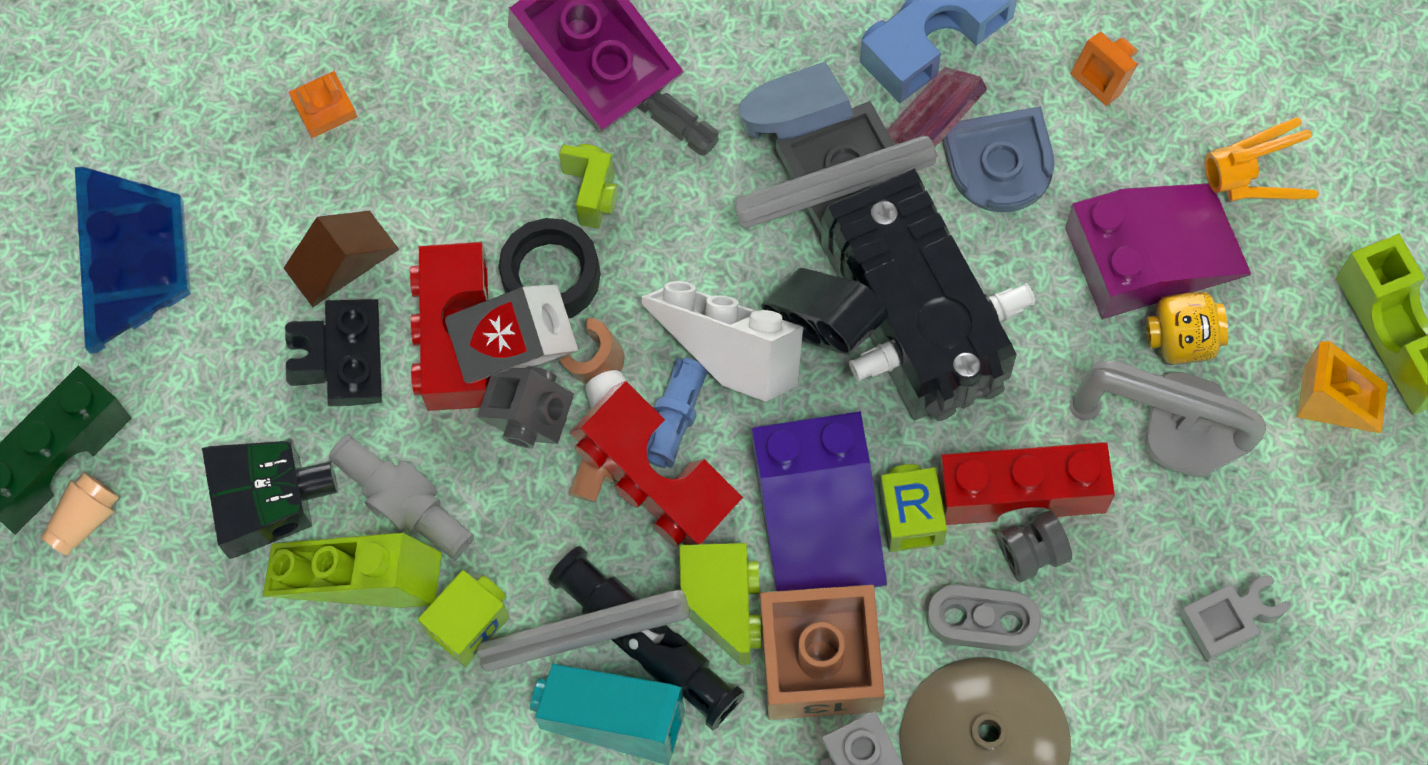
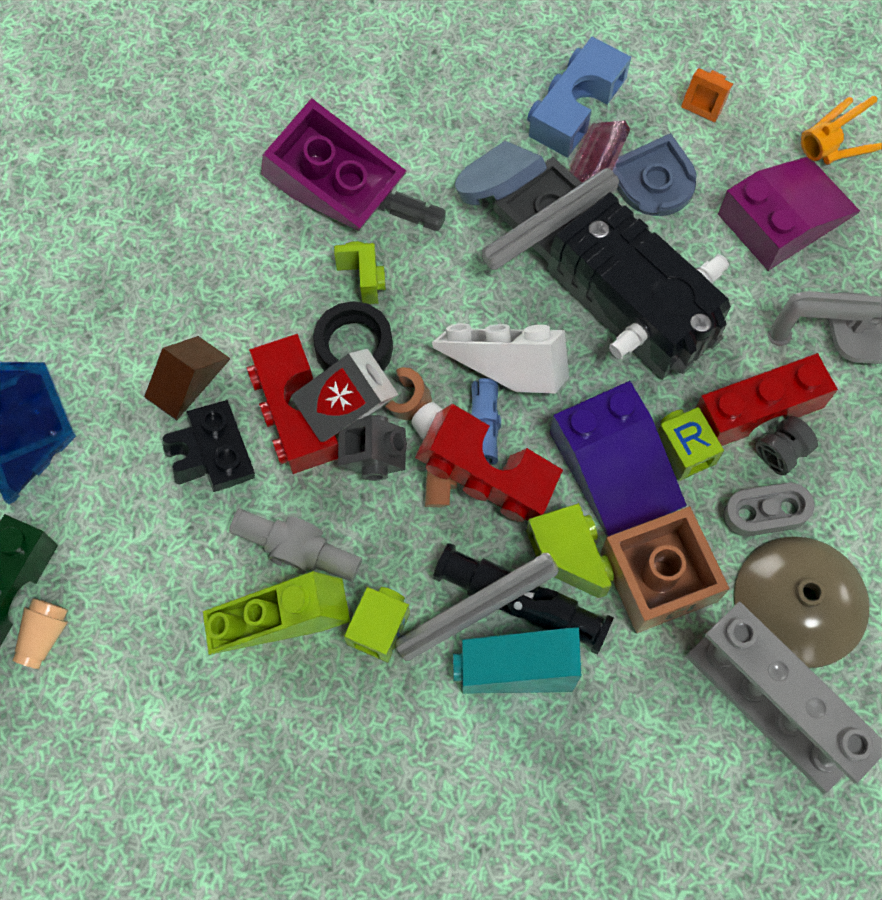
camera: 20 degrees left, 0 degrees up
(261, 493) = (183, 573): black torso -> none
(322, 104) = (136, 266): orange tile -> none
(829, 308) = (583, 311): black beam -> none
(1188, 328) = (836, 258): yellow head -> none

